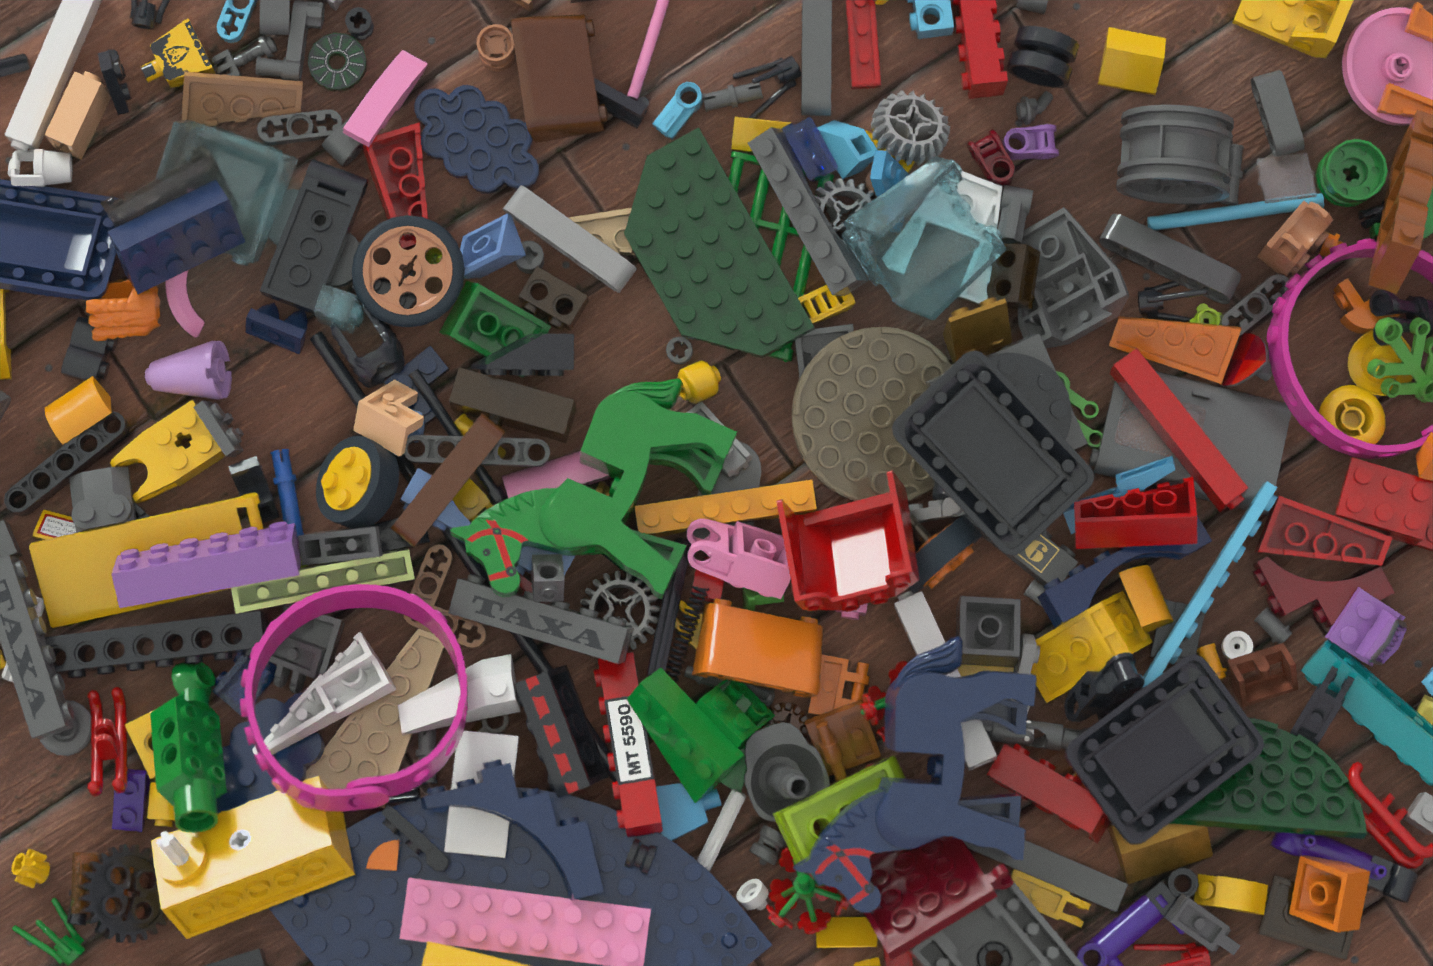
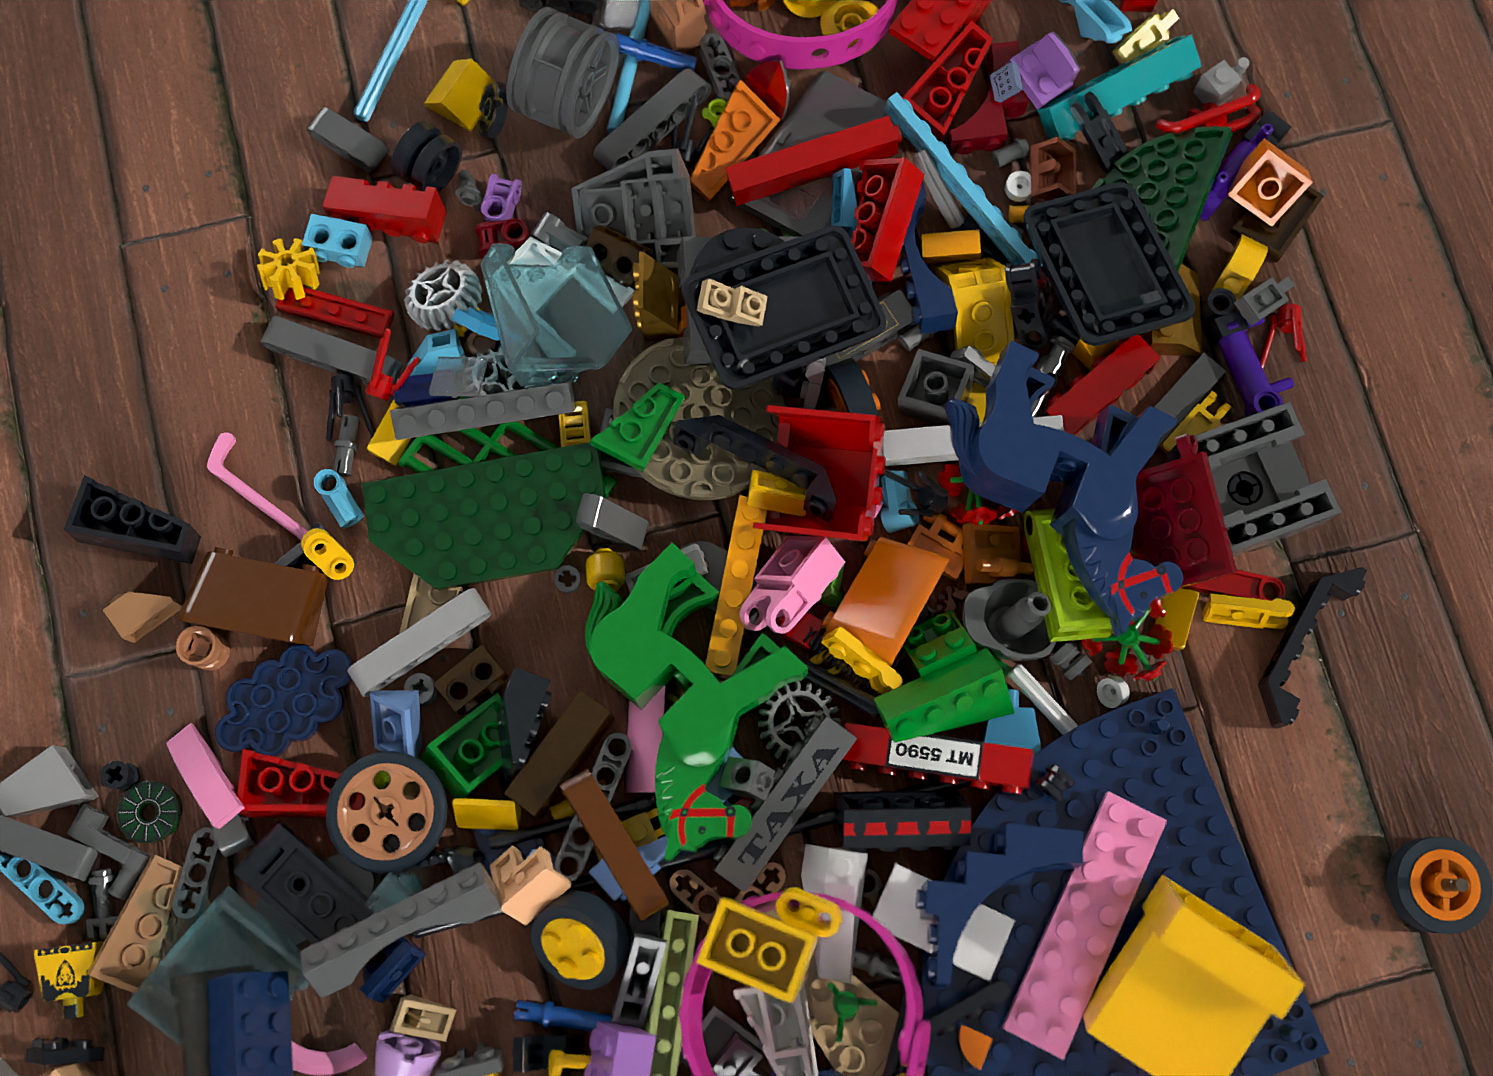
camera: 70 degrees left, 5 degrees down
(245, 372) = (422, 1018): none -> tan slope
(355, 364) = (457, 899): none -> dark grey arch
(381, 735) = (846, 1006): none -> green plant
(399, 633) = (757, 949): none -> yellow brick
(437, 359) = (487, 814): none -> yellow slope
(445, 668) = (808, 915): none -> yellow plate
(621, 125) = (329, 555): none -> yellow plate
(692, 647) = (863, 660): none -> yellow hinge
(743, 370) = (611, 522): none -> dark grey beam
(798, 105) = (379, 383): none -> red plant
(826, 515) = (775, 494): none -> yellow slope
(829, 176) = (458, 376): none -> clear piece
(839, 364) = (640, 429): none -> green wing
(852, 418) = (697, 433): none -> black slope
(857, 636) = (897, 497): none -> medium azure piece
(876, 658) = (931, 498): none -> black plant
(971, 402) = (732, 304): none -> tan slope
(1113, 103) = (494, 110): none -> black tile
(1200, 565) = (938, 189): none -> light grey axle
(1244, 233) = (647, 51): none -> blue pin
(1336, 594) = (1006, 82): none -> sand blue tile

